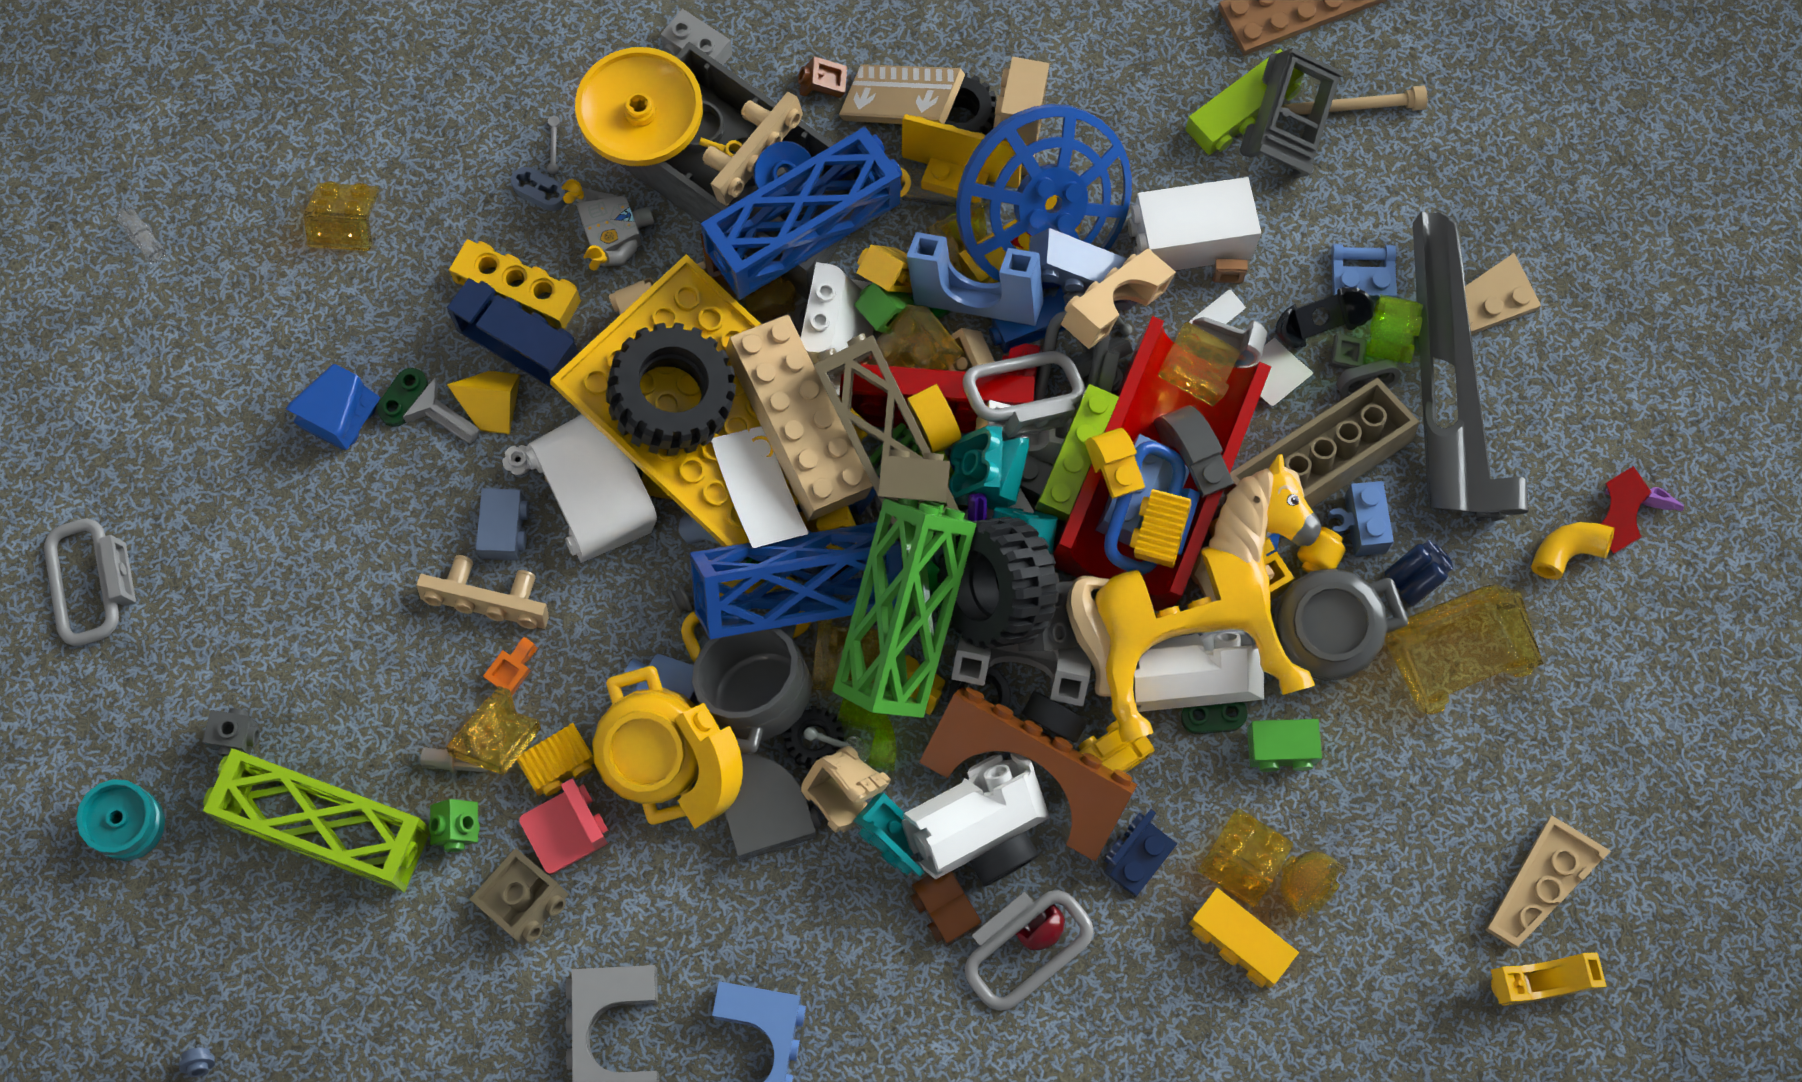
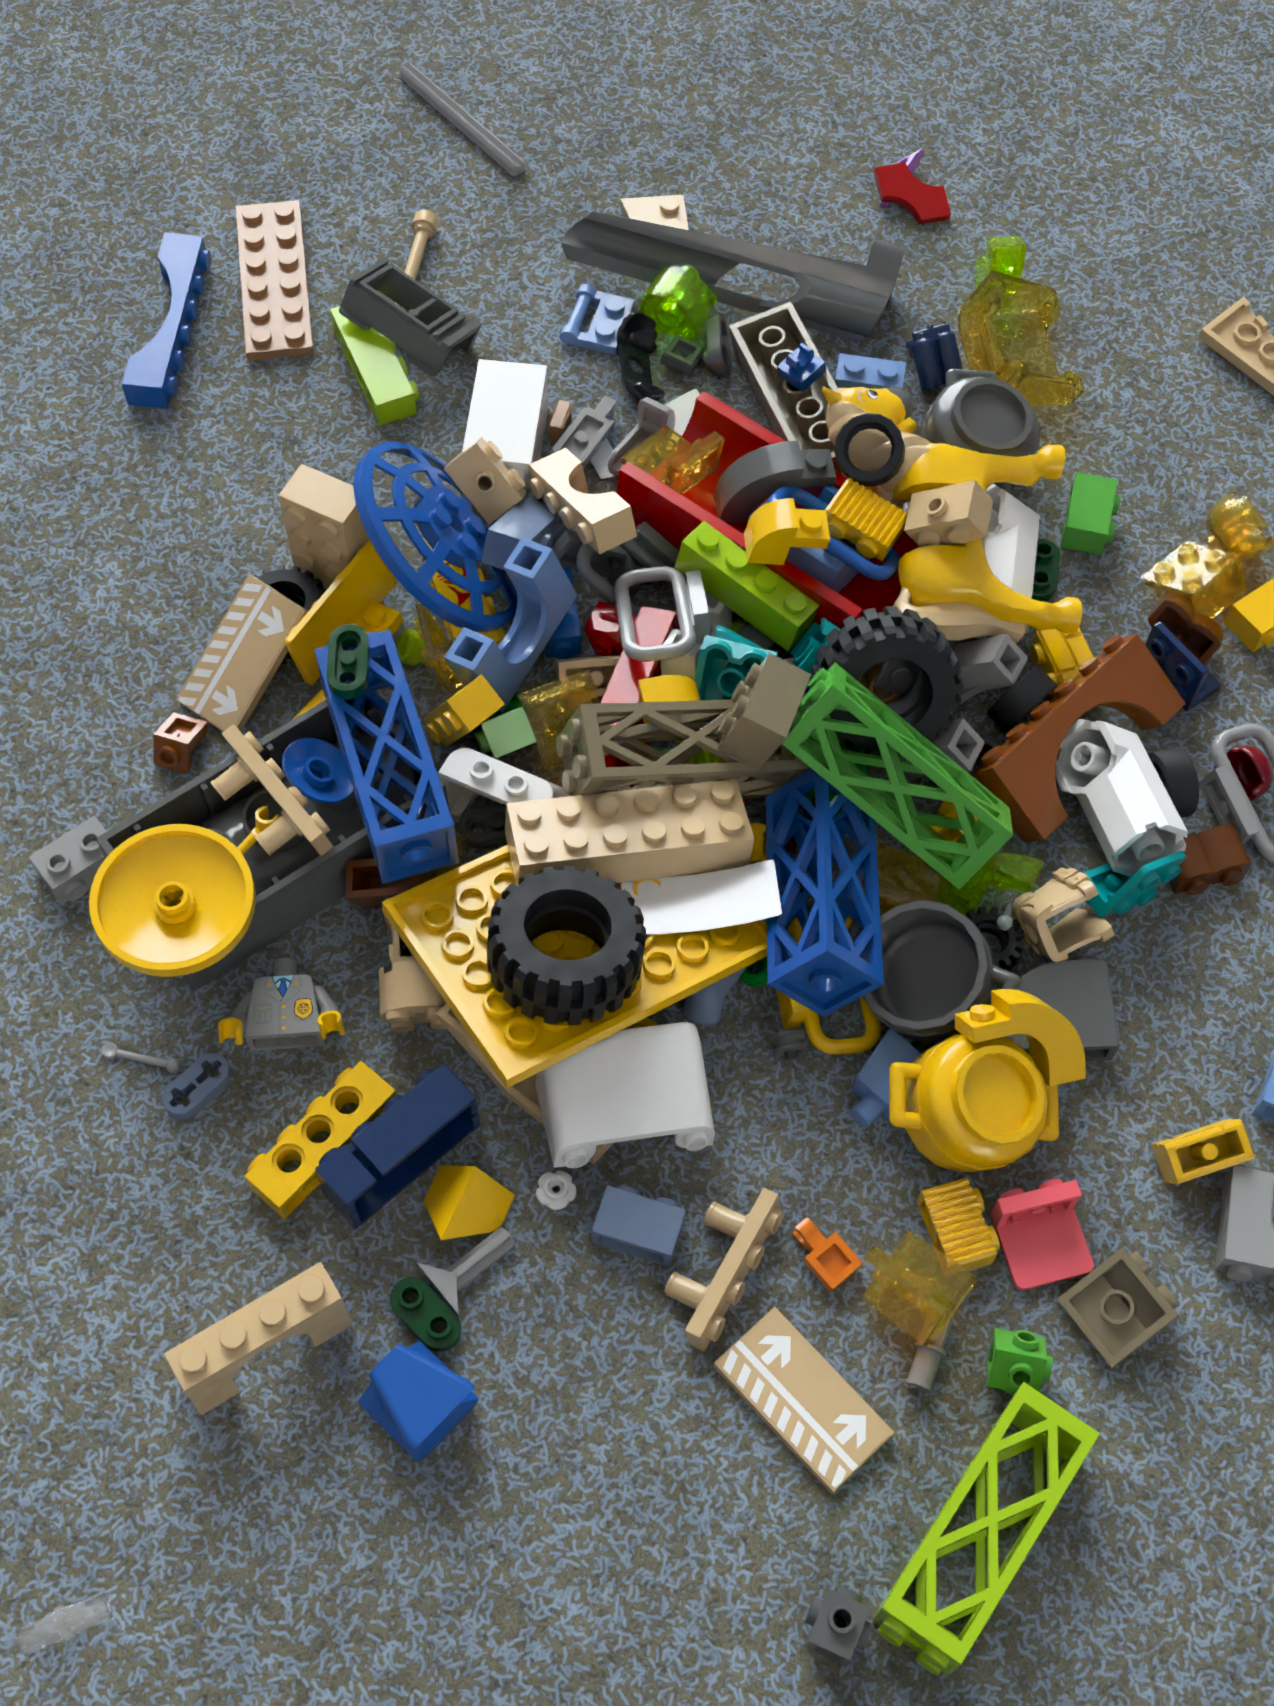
camera: 75 degrees left, 10 degrees down
(327, 267) = (214, 1356): none -> tan arch
(340, 216) = (137, 1332): clear yellow bracket -> none
(397, 677) = (803, 1400): none -> tan tile
(663, 940) = (1203, 1151): none -> yellow brick
(852, 149) = (348, 665): none -> dark green plate
(1120, 218) = (486, 479): none -> tan brick
(1175, 593) = (949, 514): none -> tan brick
(1179, 849) = (1193, 629): none -> reddish brown brick
(1206, 492) = (861, 423): none -> black tyre
(1223, 293) = (588, 431): none -> light grey hinge
(1337, 446) = (801, 367): none -> blue tile
(1543, 602) = (1002, 255): none -> clear neon green brick
(1559, 92) = (462, 119): none -> light grey axle
(1571, 541) = (933, 240): yellow cylinder -> none

